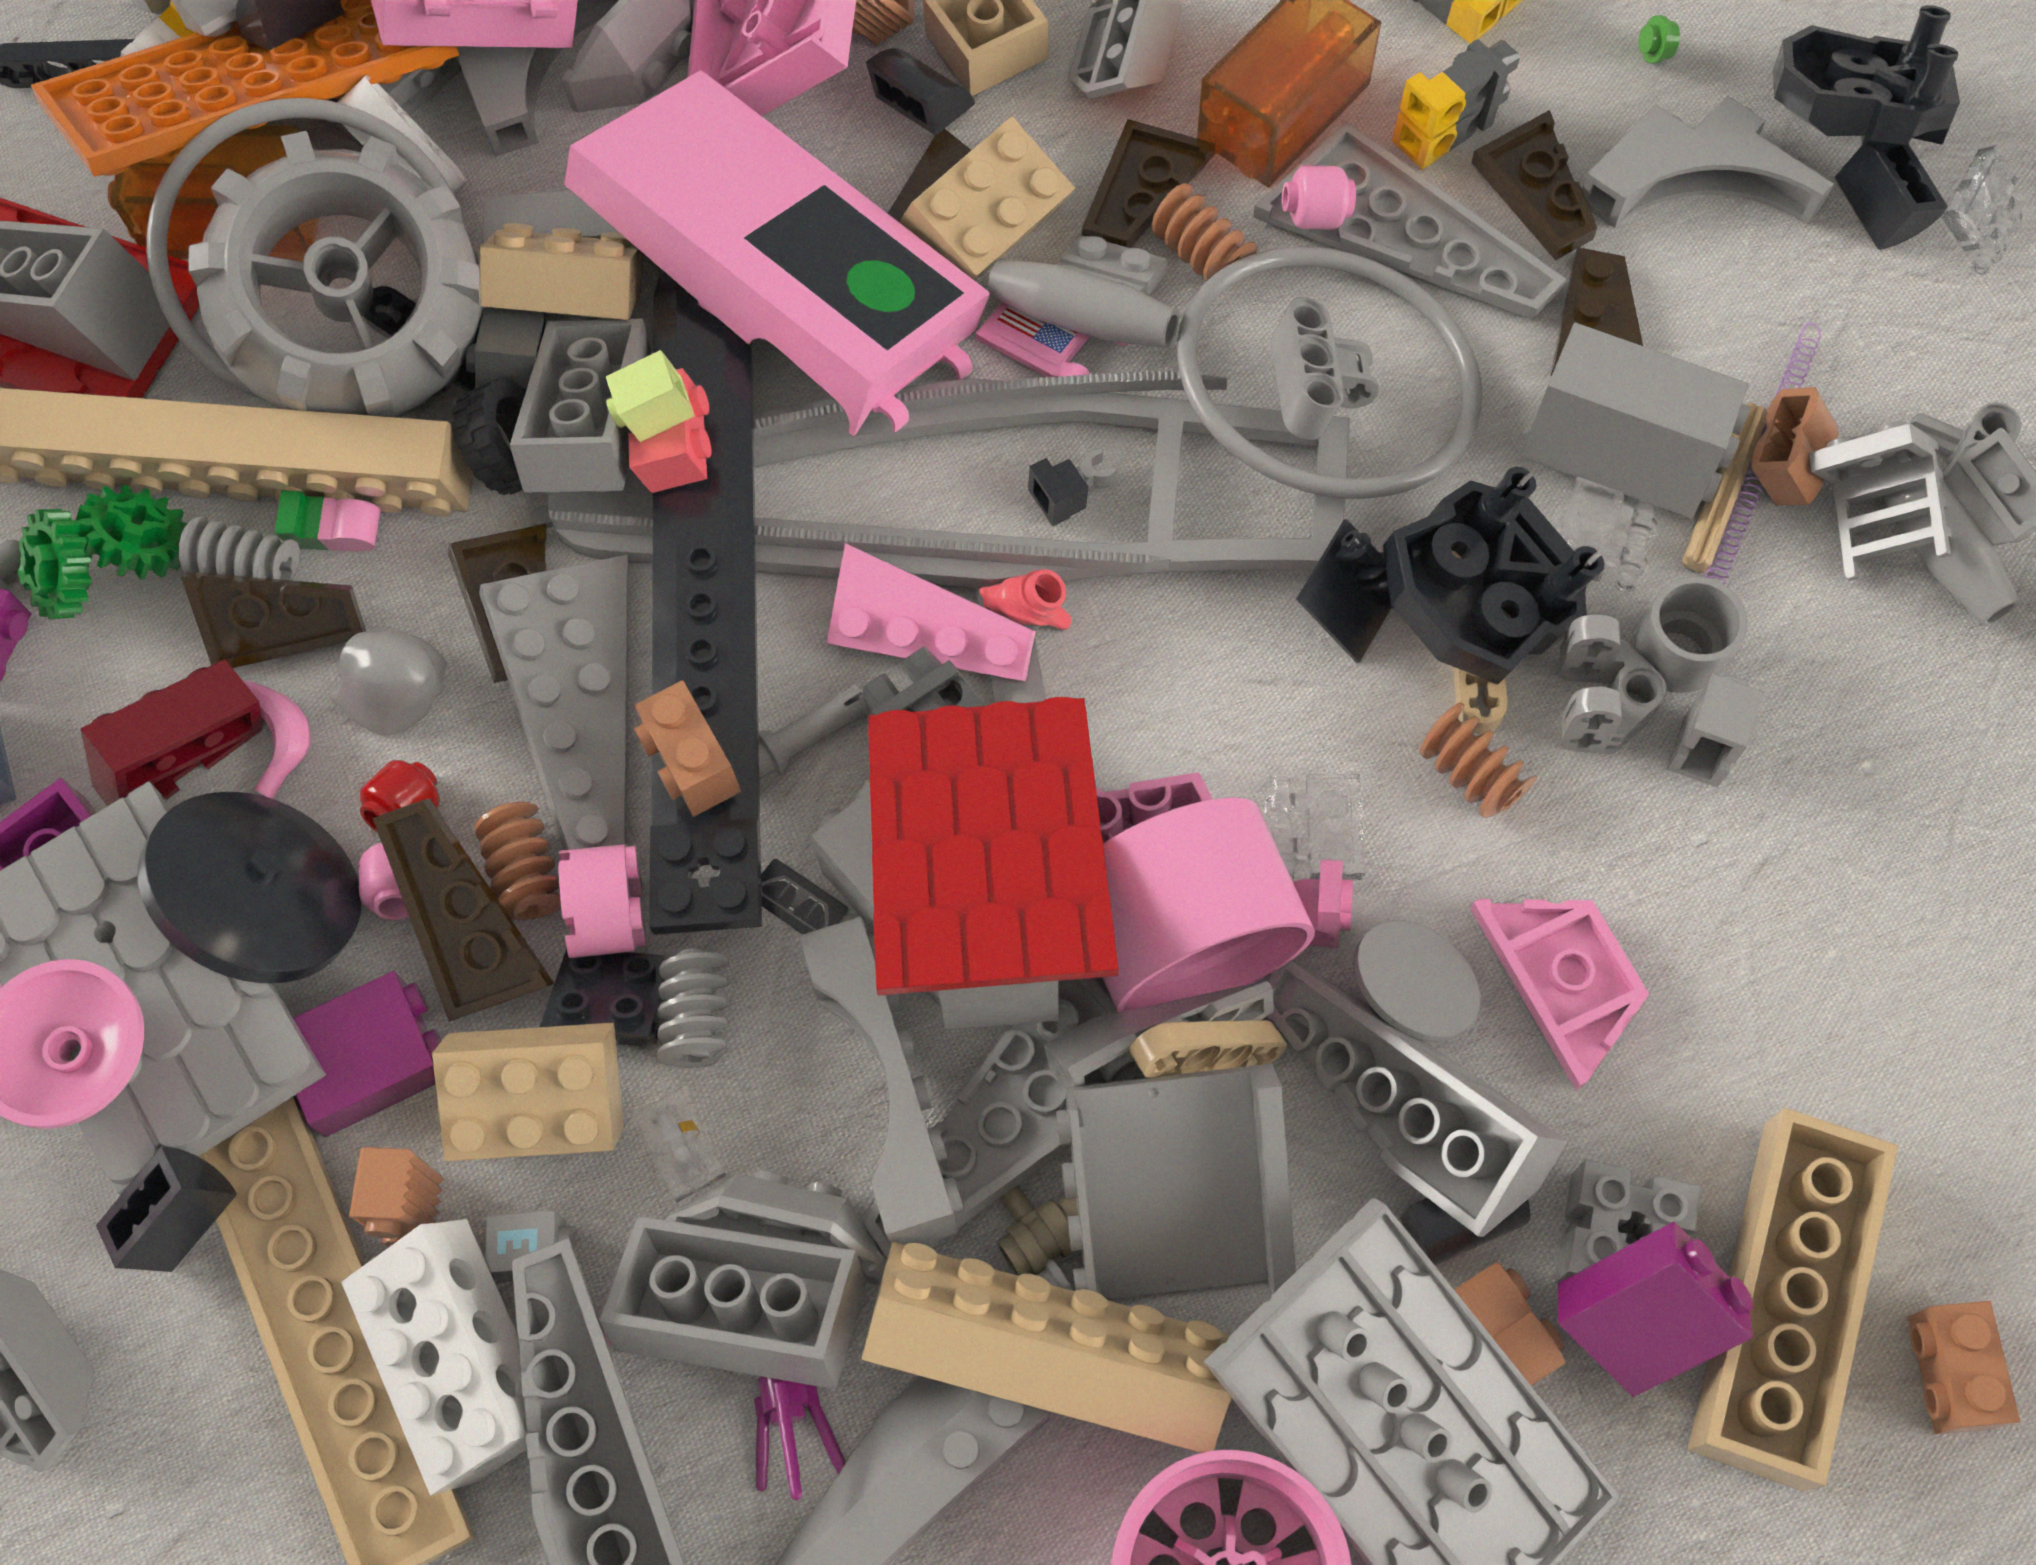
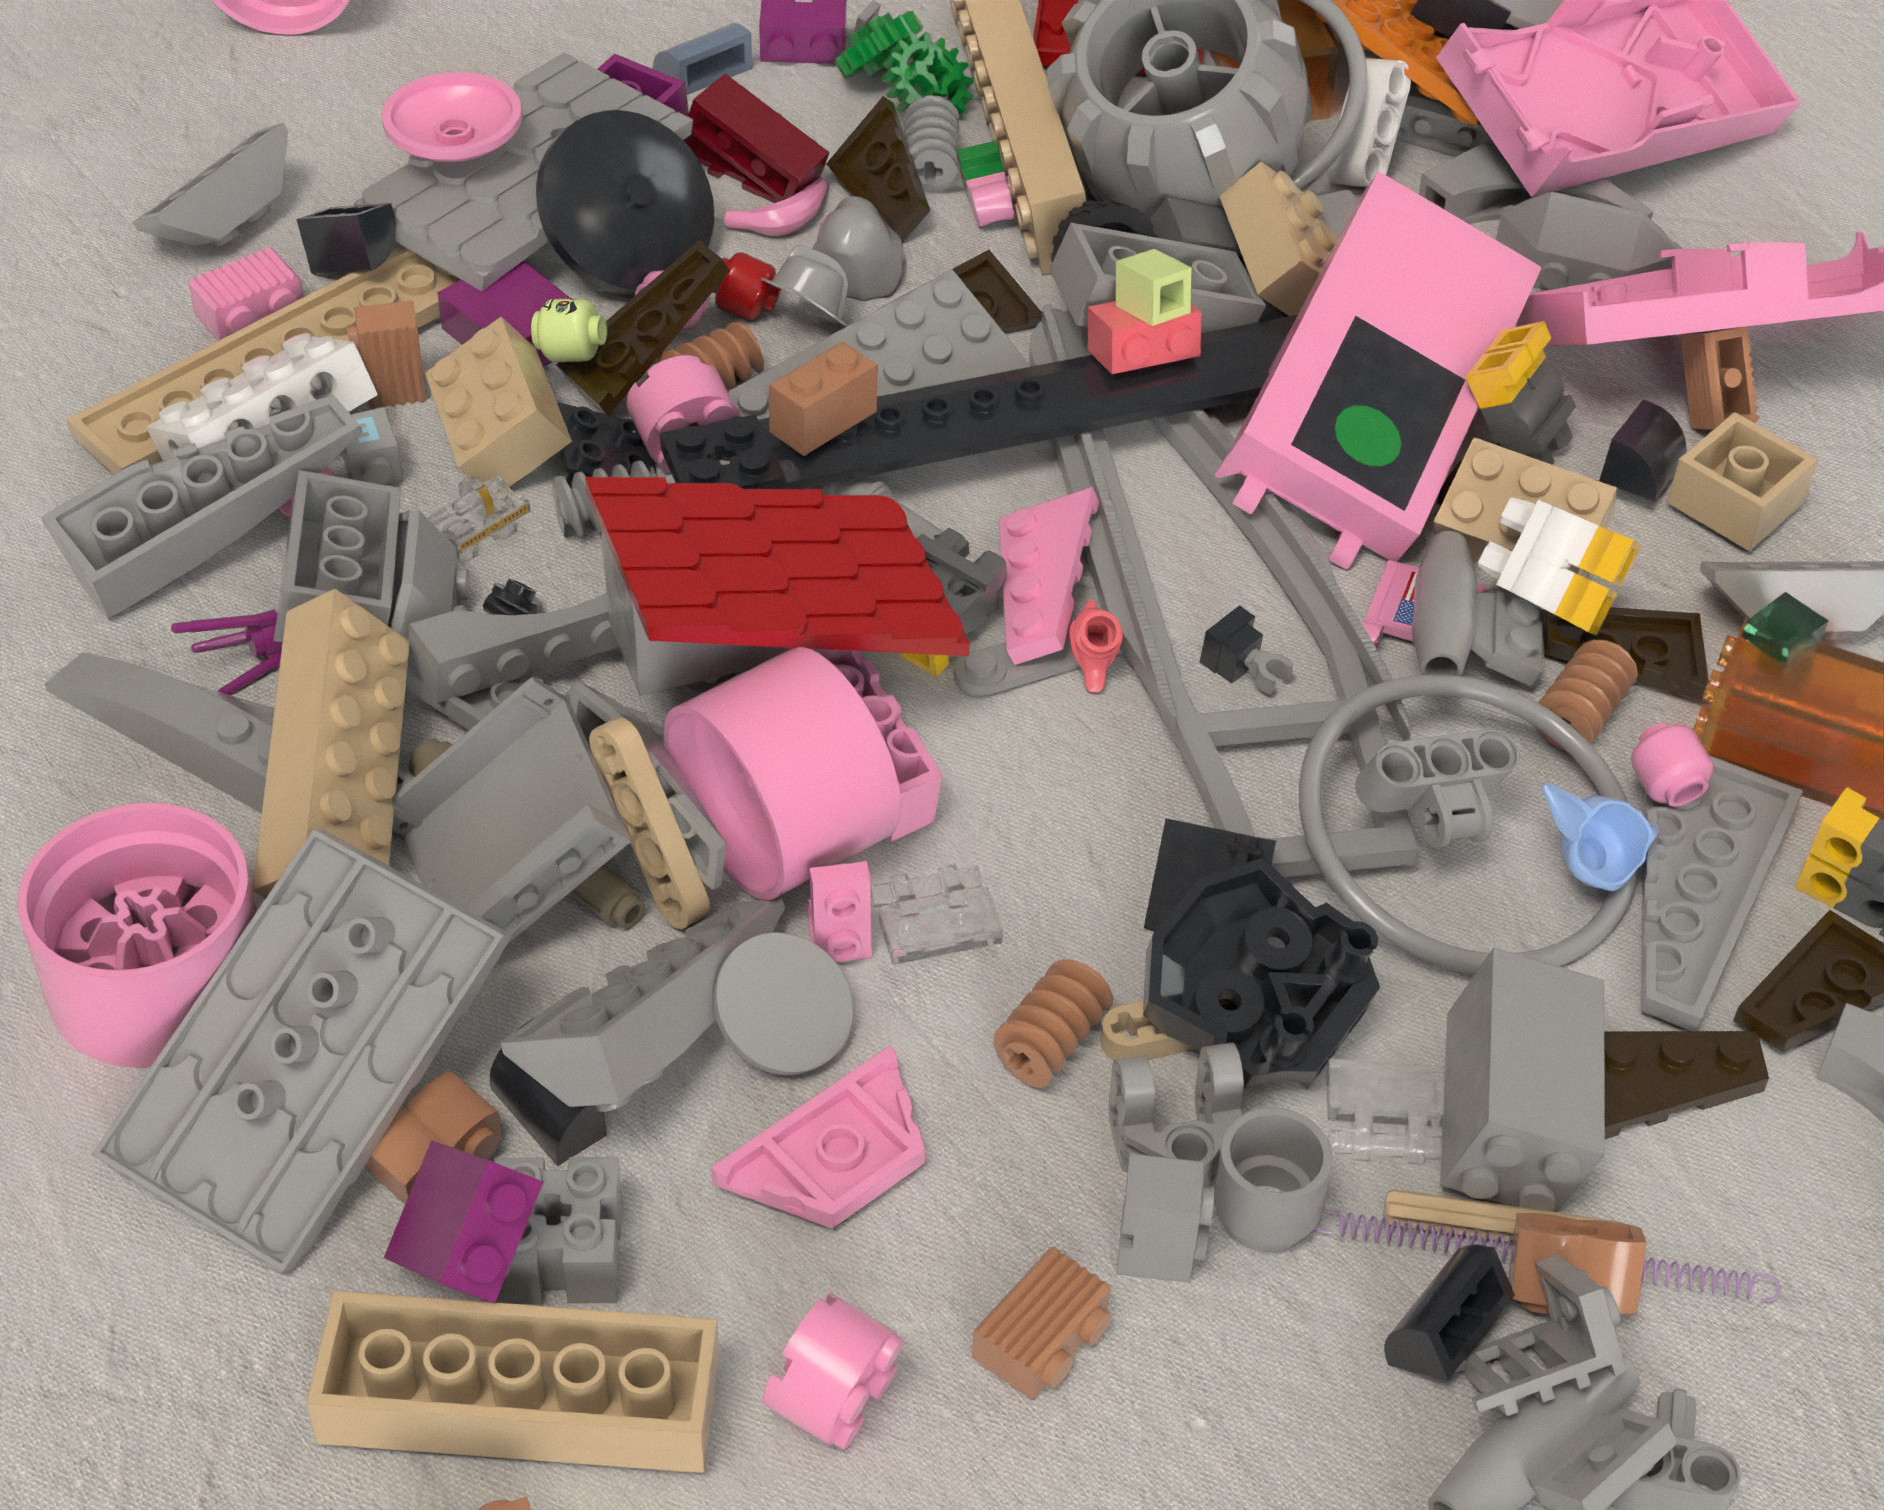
camera: 70 degrees right, 20 degrees down
(206, 1350) = (243, 292): none -> bright pink brick
(443, 990) = (568, 330): none -> yellowish green head
(449, 727) = (815, 279): none -> light grey piece
(806, 1132) = (511, 599): none -> black plate
(845, 147) = (1522, 393): none -> hips
(1082, 190) = (1542, 559): none -> white hips
(1228, 54) = (1784, 628): none -> clear green bracket
(1387, 277) = (1600, 837): none -> light blue piece
(1780, 853) = (1042, 1323): none -> nougat brick
(1820, 554) = (1451, 1314): none -> black brick
(1824, 1027) = (832, 1369): none -> bright pink brick

